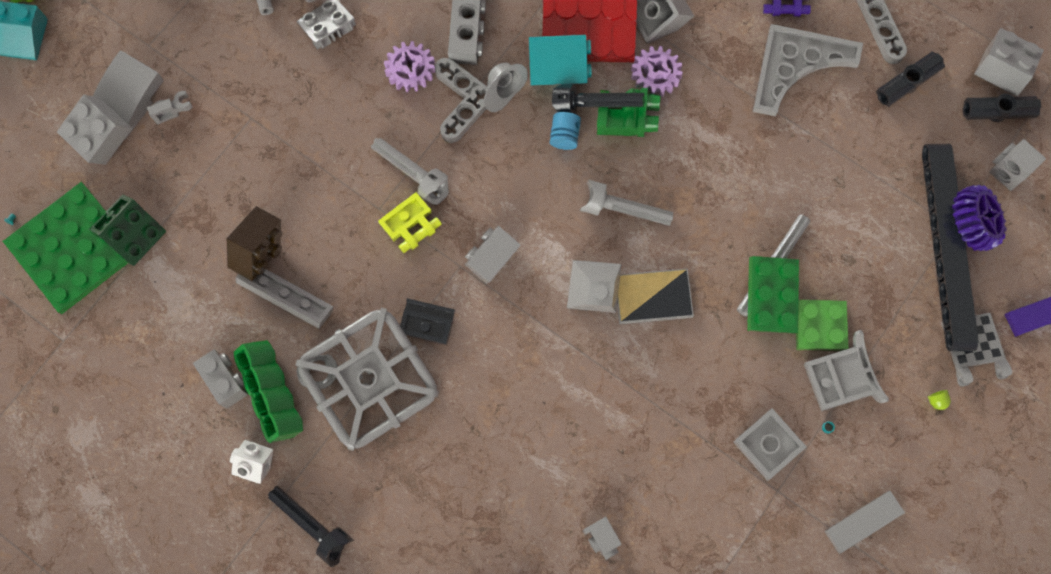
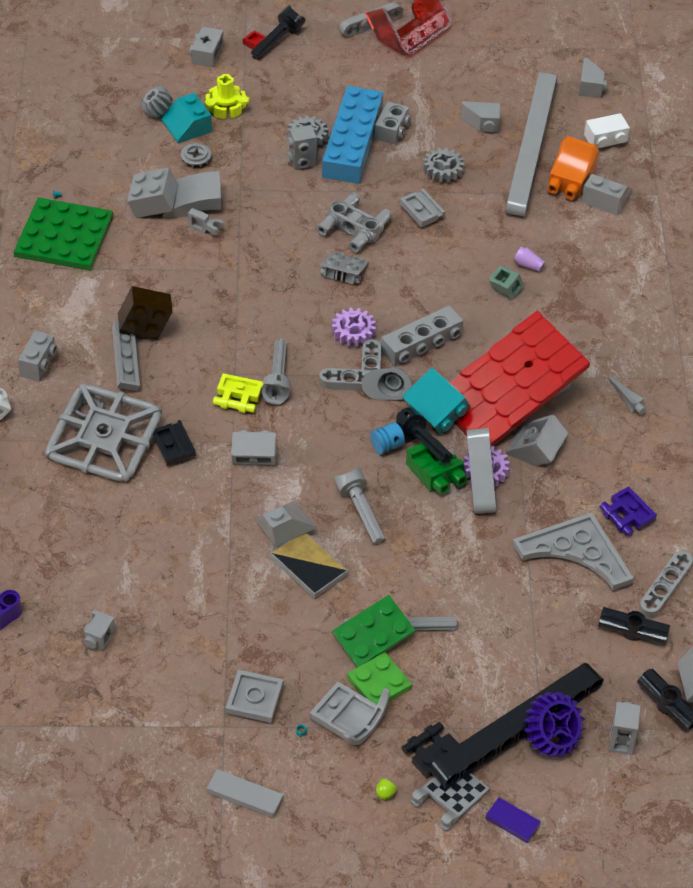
camera: 50 degrees right, 25 degrees down
(73, 45) = (189, 152): none -> light grey gear
(128, 229) = (99, 251): dark green bracket -> none
(268, 391) = (49, 384): green brick -> none
(668, 76) = (481, 470): none -> light grey beam
(929, 328) = (426, 756): none -> black plate

